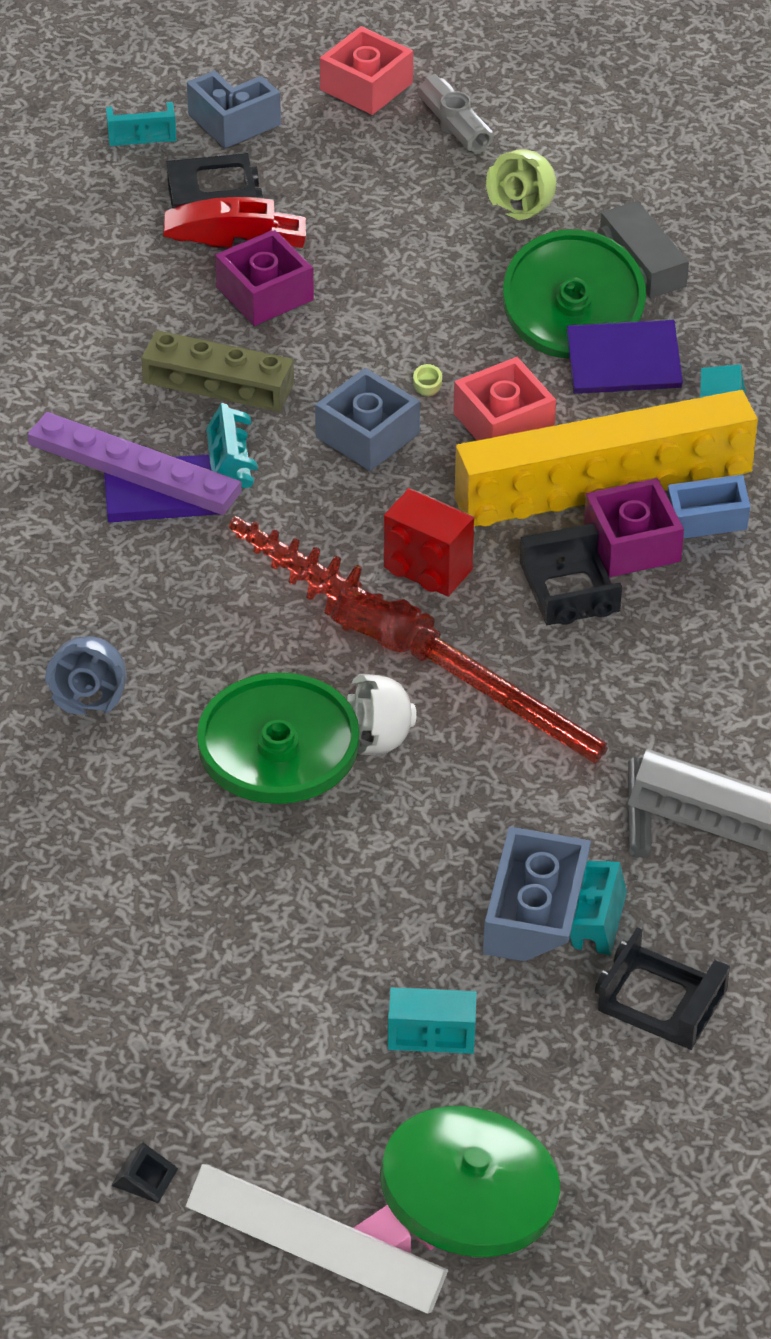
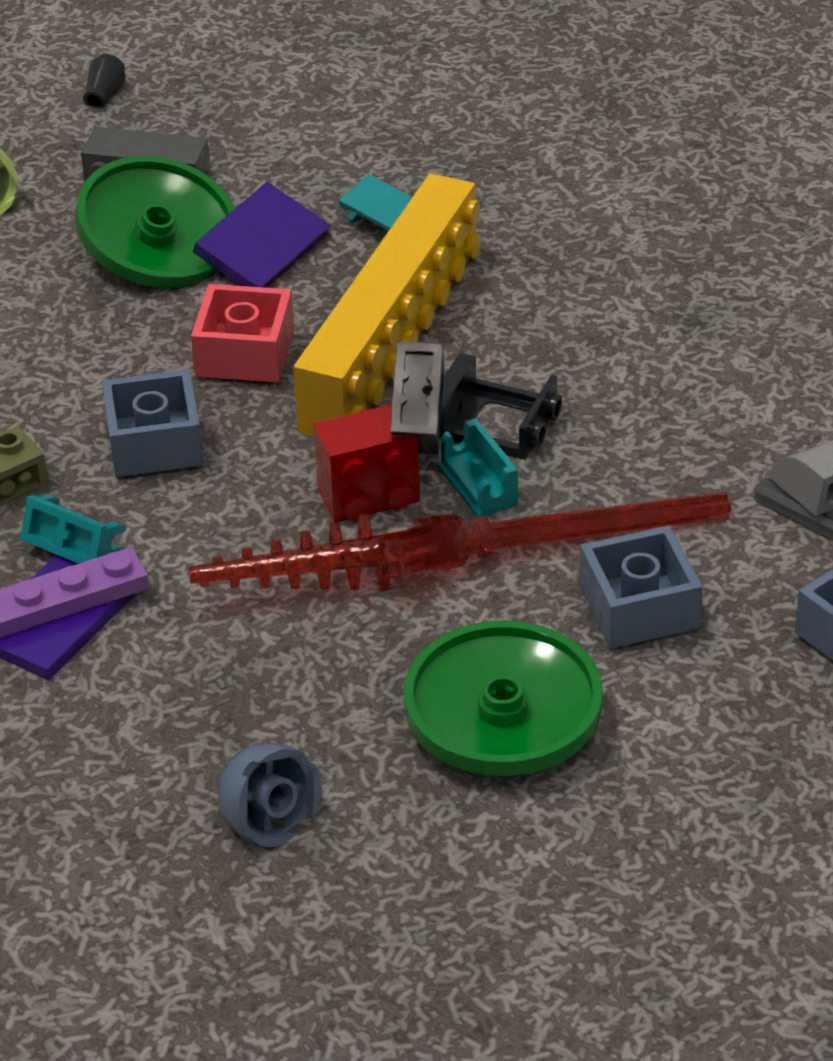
camera: 50 degrees left, 5 degrees down
(382, 709) = (547, 600): white cylinder -> none
(427, 380) = (135, 360): yellowish green hinge -> none
(452, 748) = (640, 586): none -> sand blue brick
(483, 523) = (418, 394): none -> window
(498, 607) = (479, 470): none -> teal hinge
(634, 527) = (492, 326): magenta brick -> none
(711, 505) = (512, 281): medium blue piece -> none
(713, 173) = (104, 78): none -> black cone

